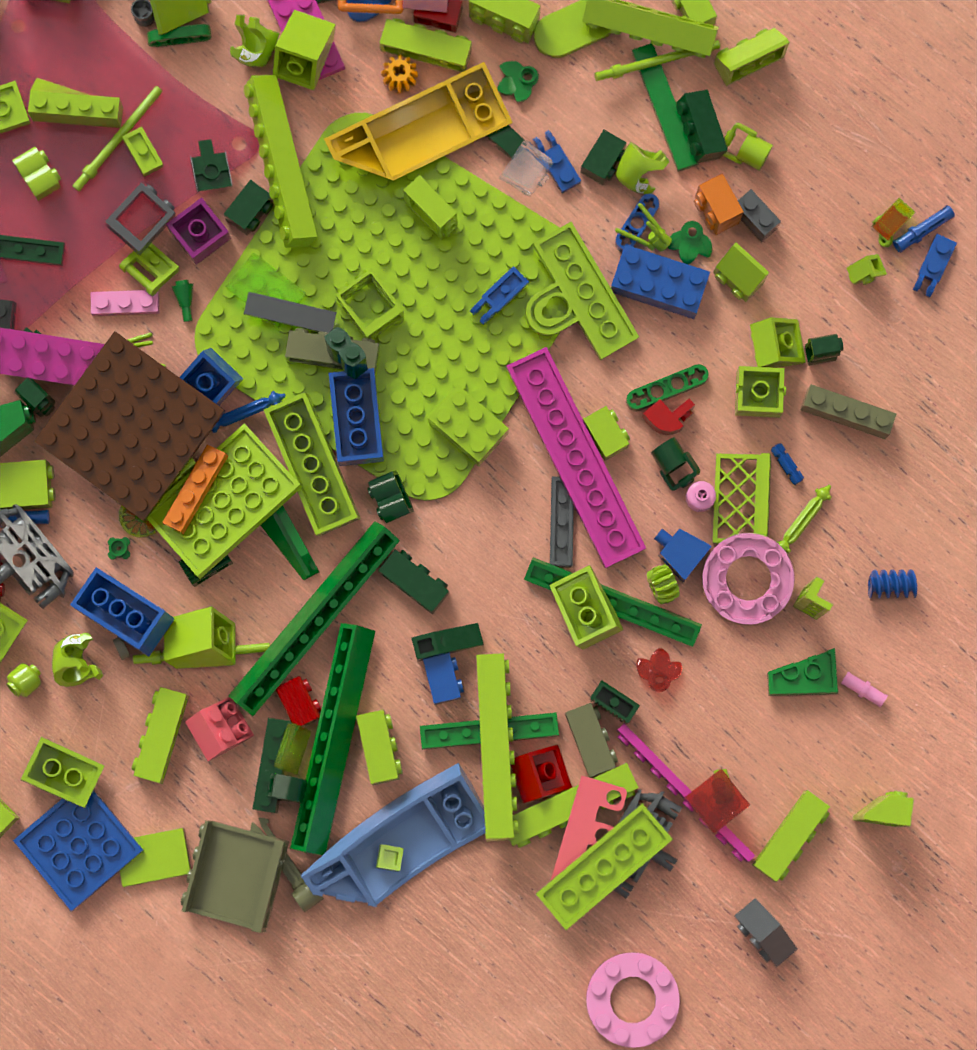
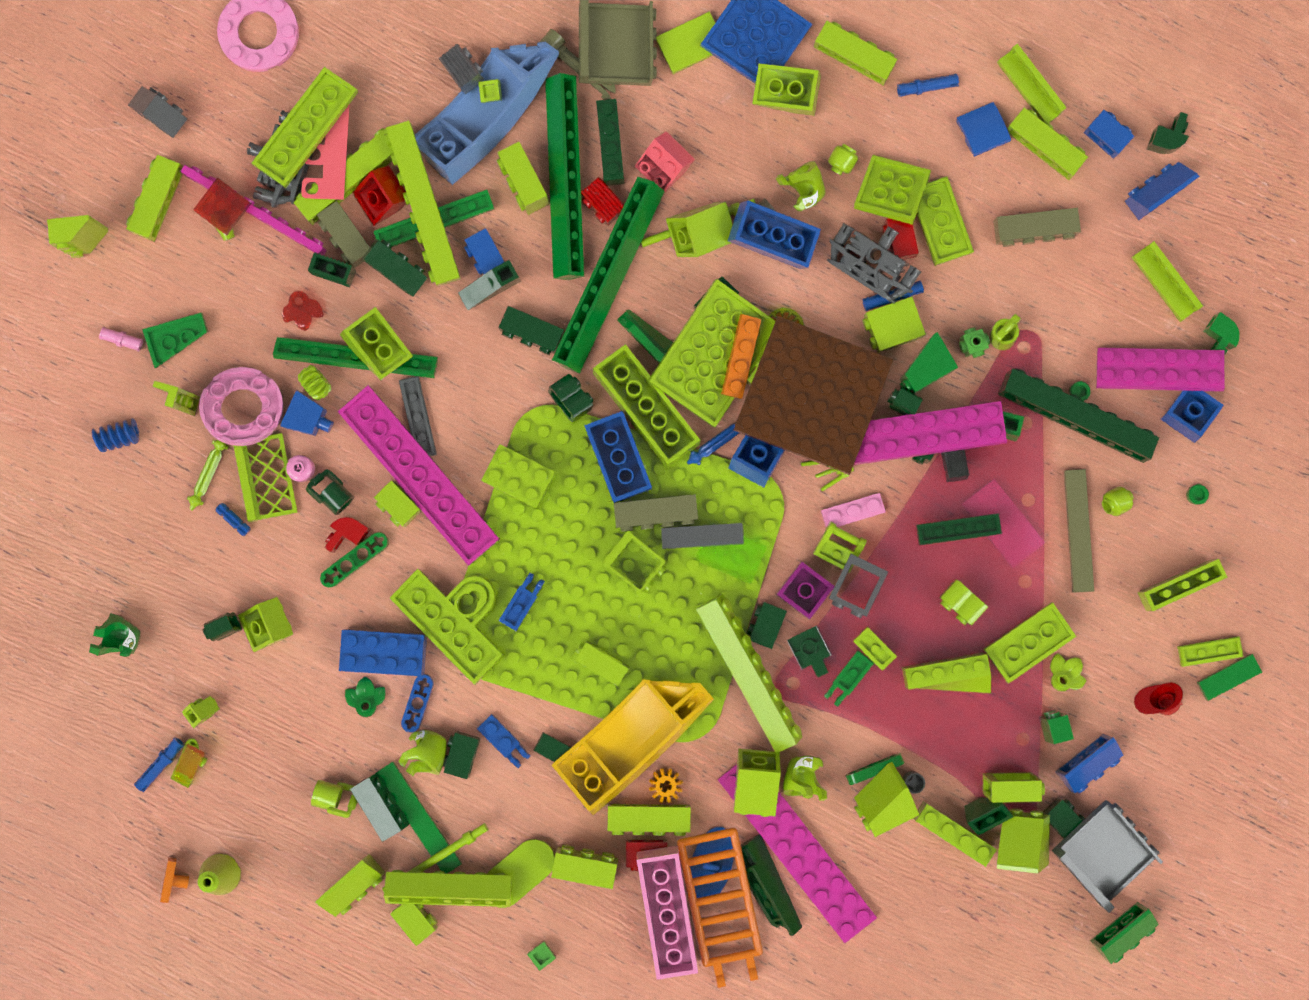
camera: 170 degrees right, 5 degrees up
(90, 171) = (916, 618): lime bar -> none
(114, 543) = (798, 288): green plate -> none
(161, 735) = (713, 143): lime brick -> none
(177, 130) = (850, 676): none -> green hinge
(183, 293) = (802, 531): green cone -> none
(286, 788) = (591, 121): dark green brick -> none
(292, 748) = (595, 155): clear neon green tile -> none
(346, 352) = (644, 509): dark green brick -> none
(414, 892) = (461, 68): none -> flat silver brick
(514, 81) = (560, 806): green plate -> none
(527, 169) = (526, 724): clear torso -> none
(544, 686) = (395, 267): none -> dark green brick
(657, 237) = (395, 692): lime plant -> none
(718, 204) = (346, 735): orange brick -> none
(740, 272) = (312, 678): lime slope -> none
(758, 216) = (311, 736): dark grey brick -> none
(759, 391) = (270, 574): lime brick -> none
(848, 411) = (188, 578): olive brick -> none
(887, 101) = (219, 874): none -> lime cone
(935, 263) = (143, 735): blue hinge -> none
(936, 108) = (172, 880): none -> orange tile
(937, 370) = (117, 637): none -> green piece

